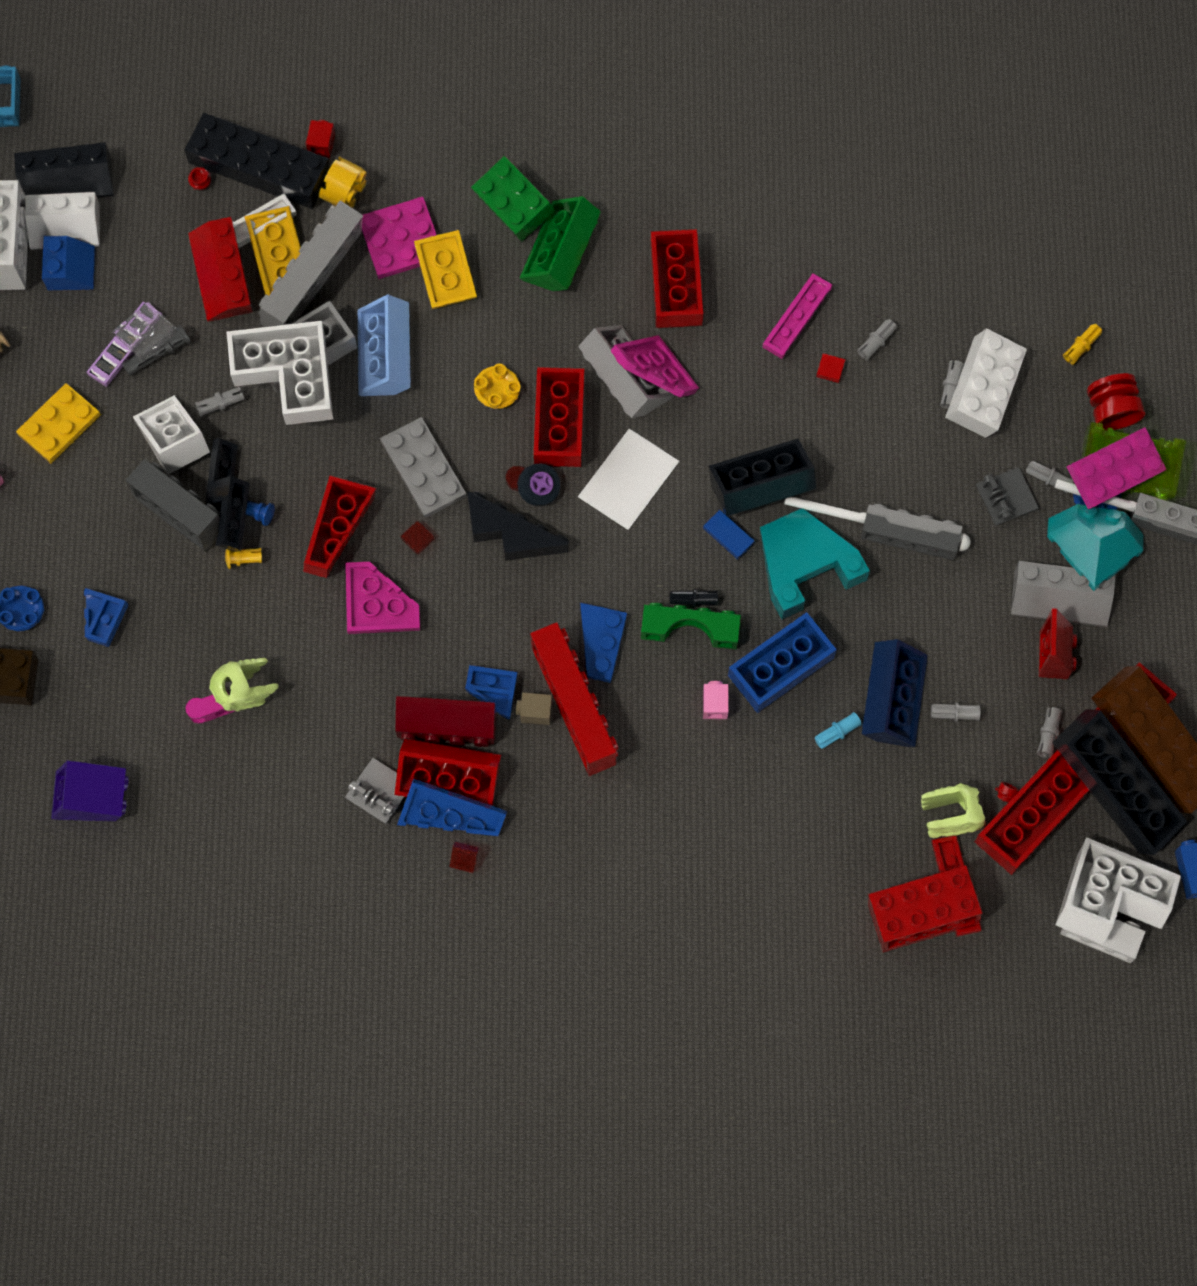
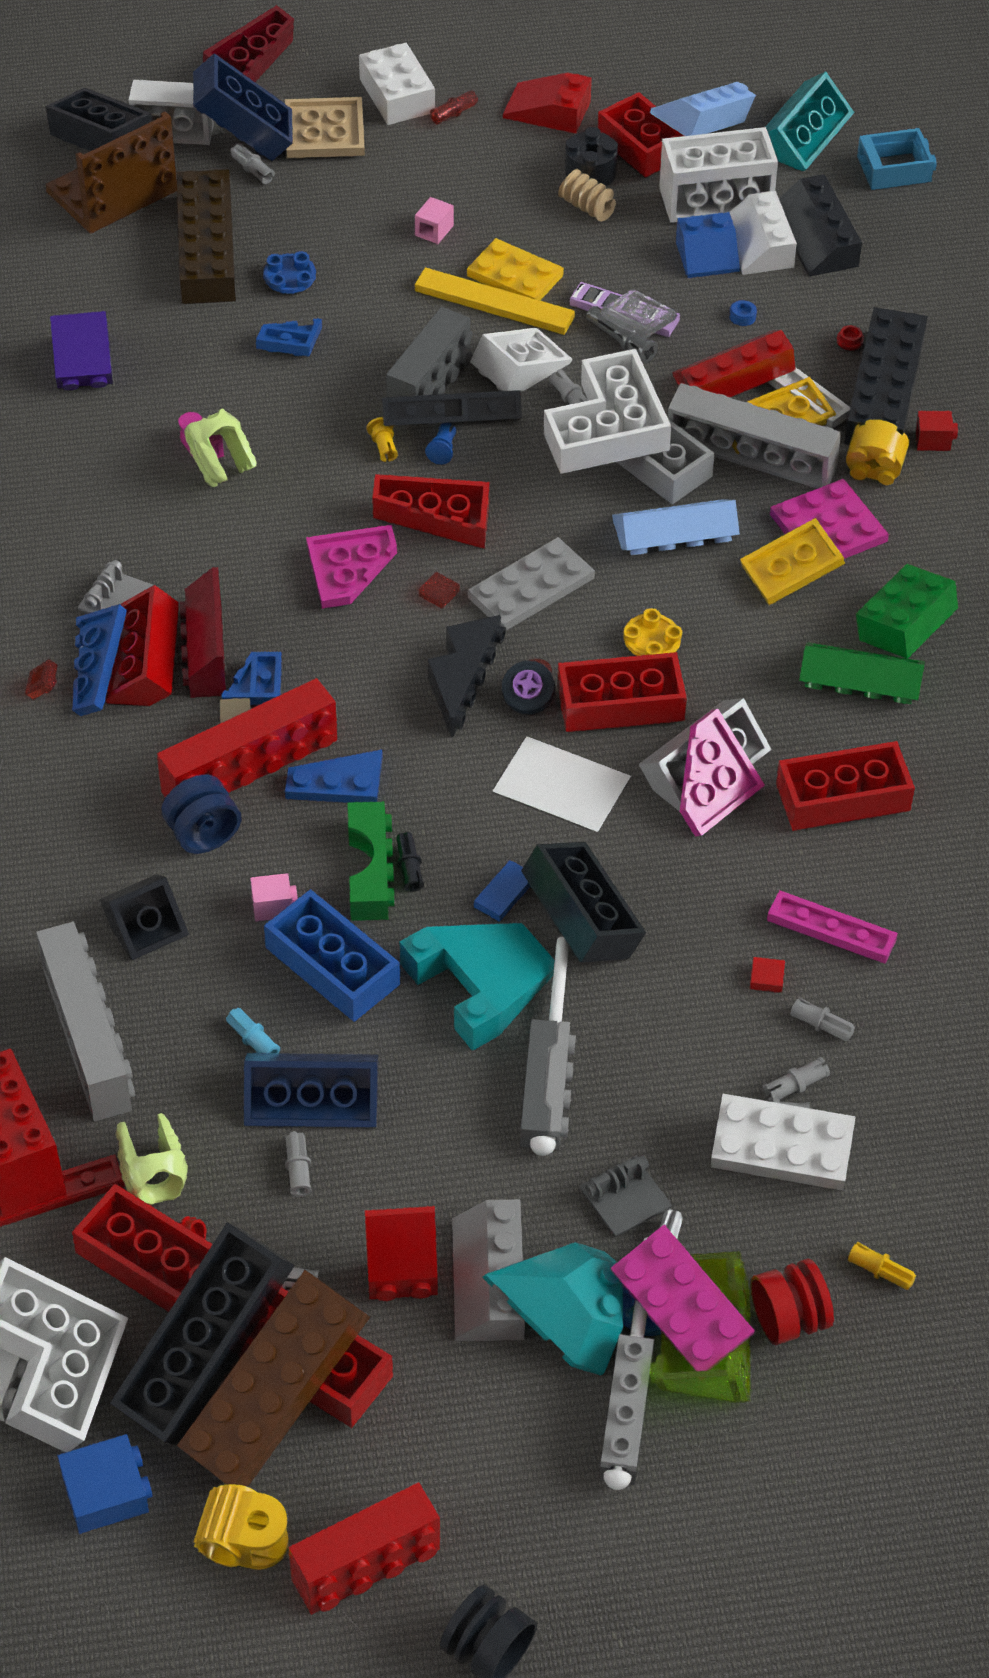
camera: 80 degrees right, 20 degrees down
(90, 445) = (494, 301): none -> yellow tile
(149, 253) = (743, 313): none -> blue tile
(635, 742) = (201, 814): none -> dark blue wheel
(718, 797) = (144, 916): none -> black slope
(822, 846) = (86, 1021): none -> light grey brick
(926, 366) = (796, 1080): none -> light grey pin

